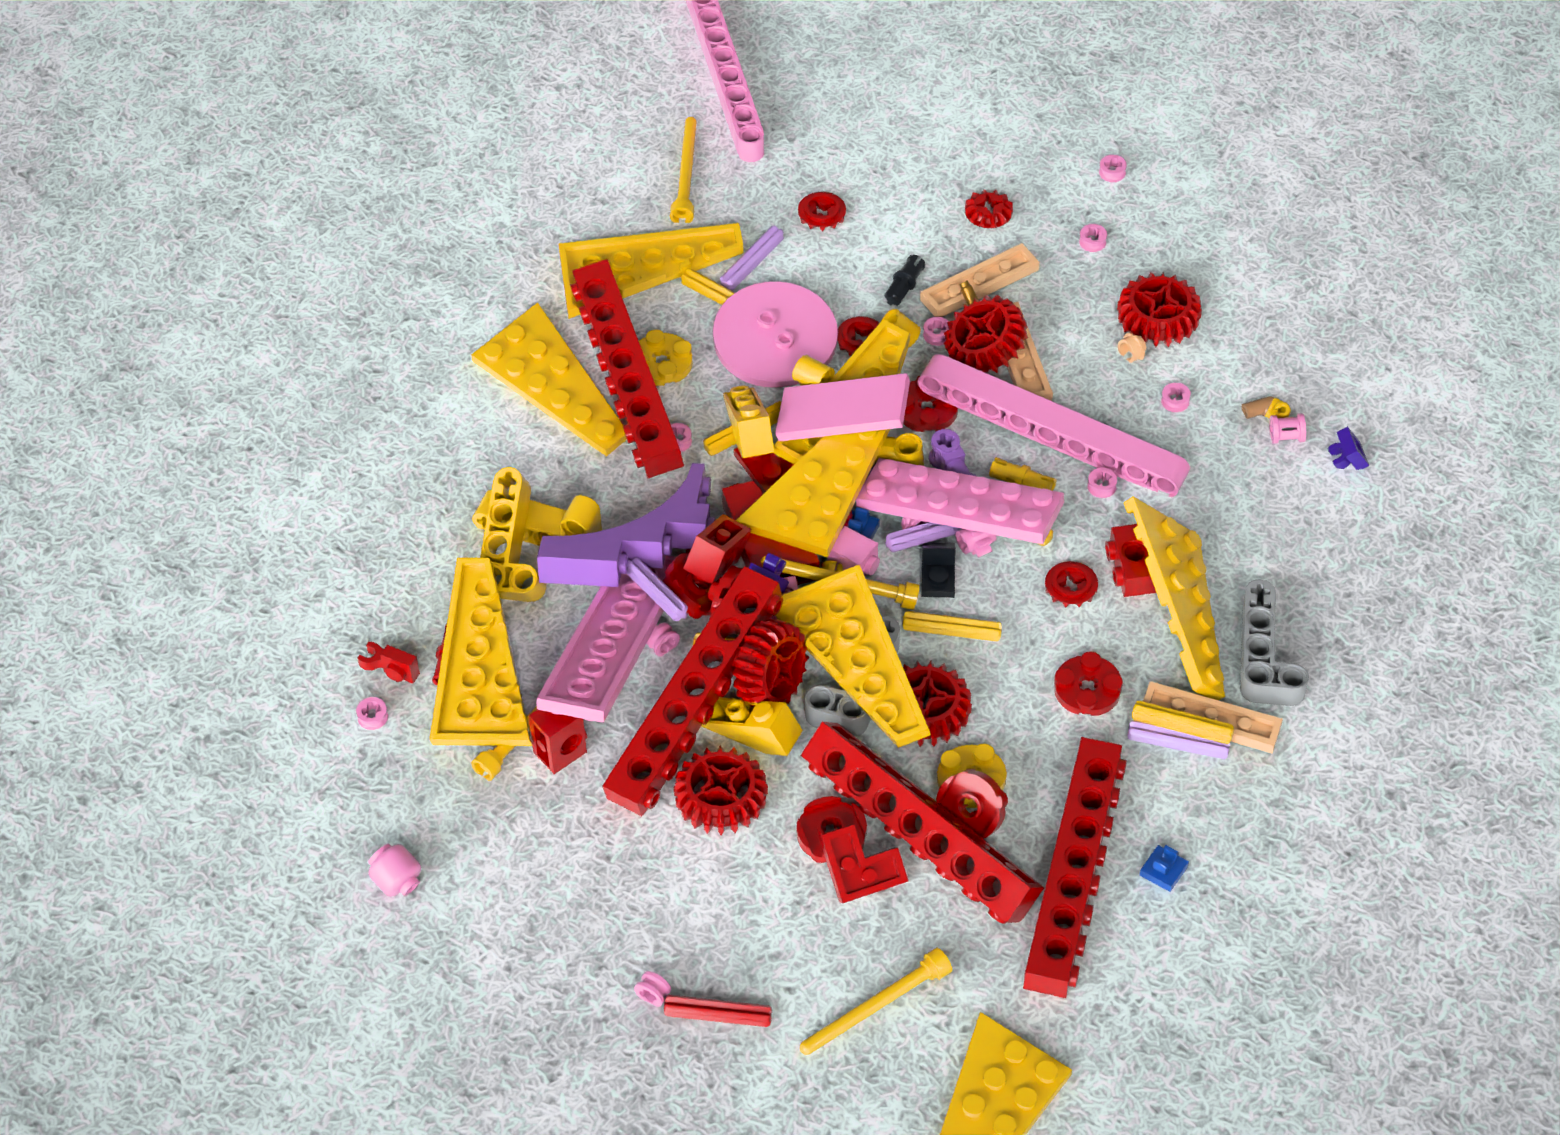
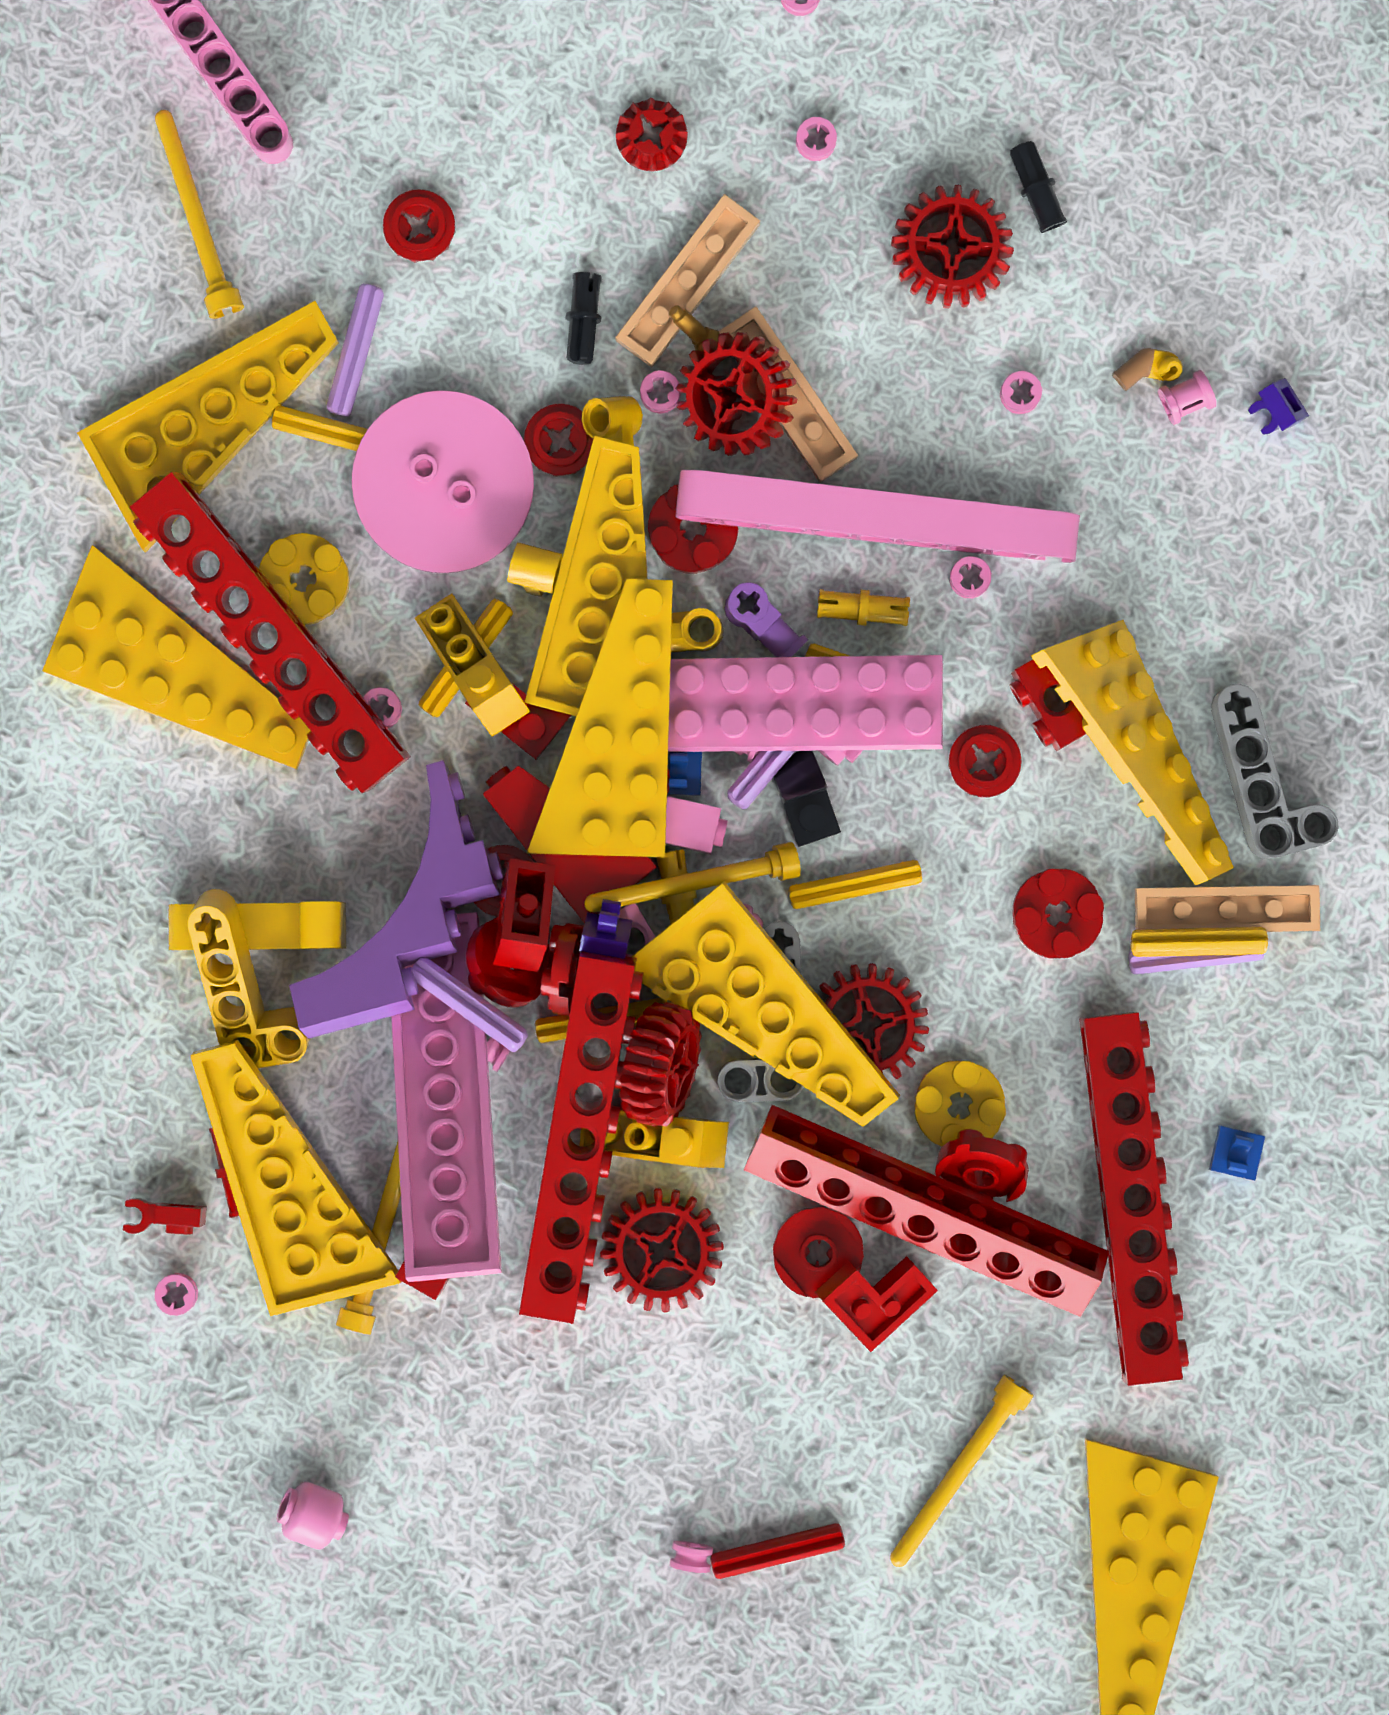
camera: 25 degrees left, 35 degrees up
(843, 407) = (602, 625): bright pink tile -> none
(1134, 344) = (938, 323): light nougat plate -> none
(1228, 299) = (1037, 186): none -> black axle

